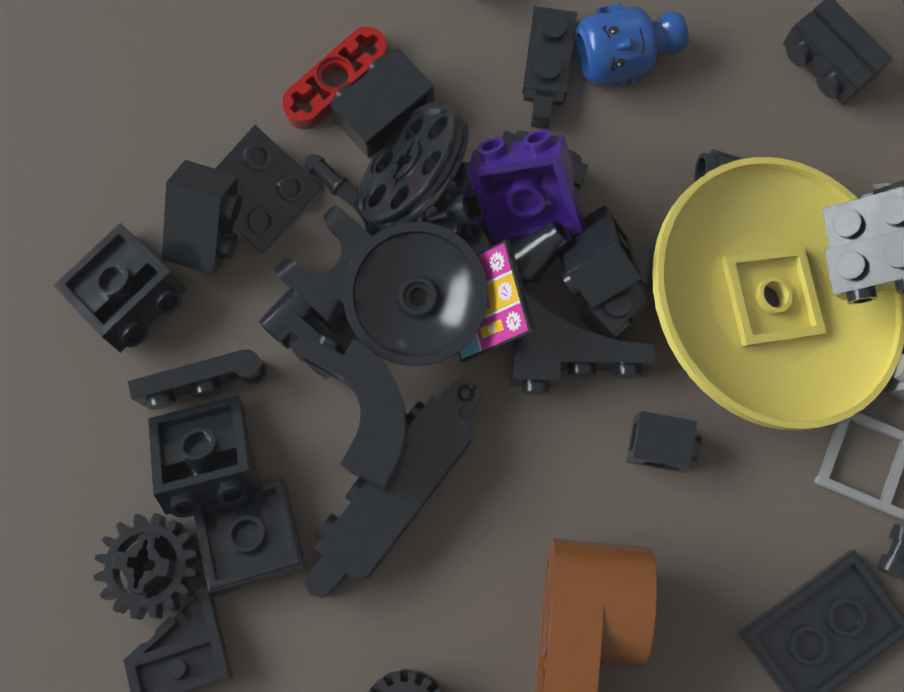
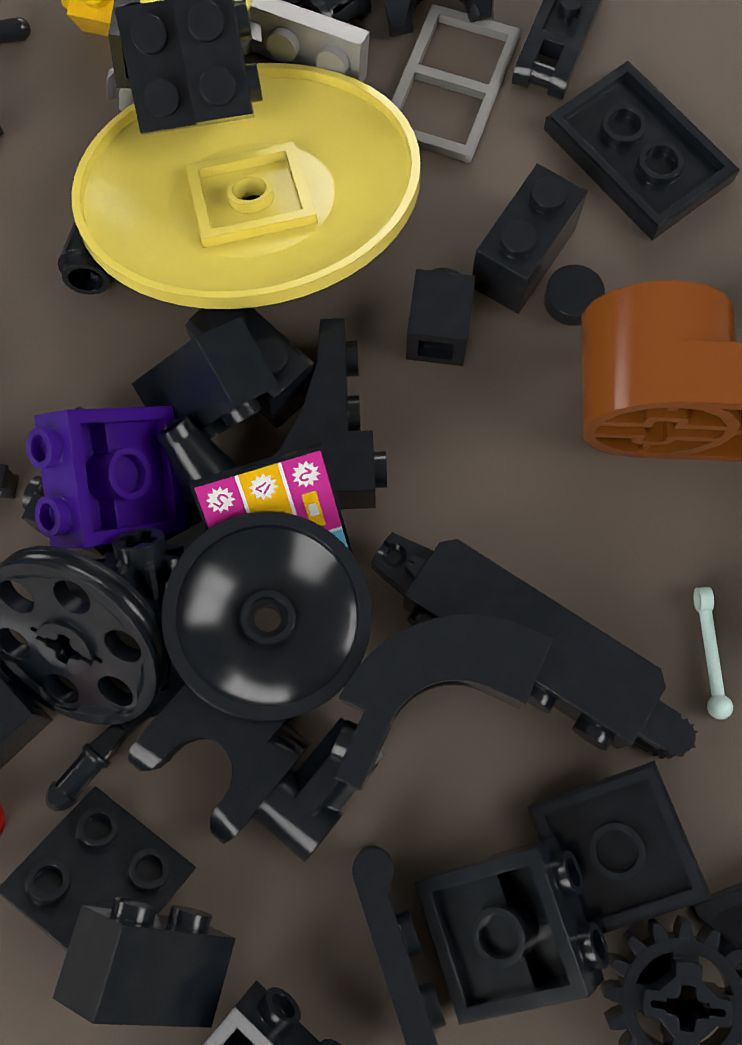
camera: 90 degrees left, 5 degrees down
(343, 628) = (718, 705): none -> light aqua hinge
(684, 556) = (571, 292): none -> black tile
(730, 518) = (527, 238): none -> black brick

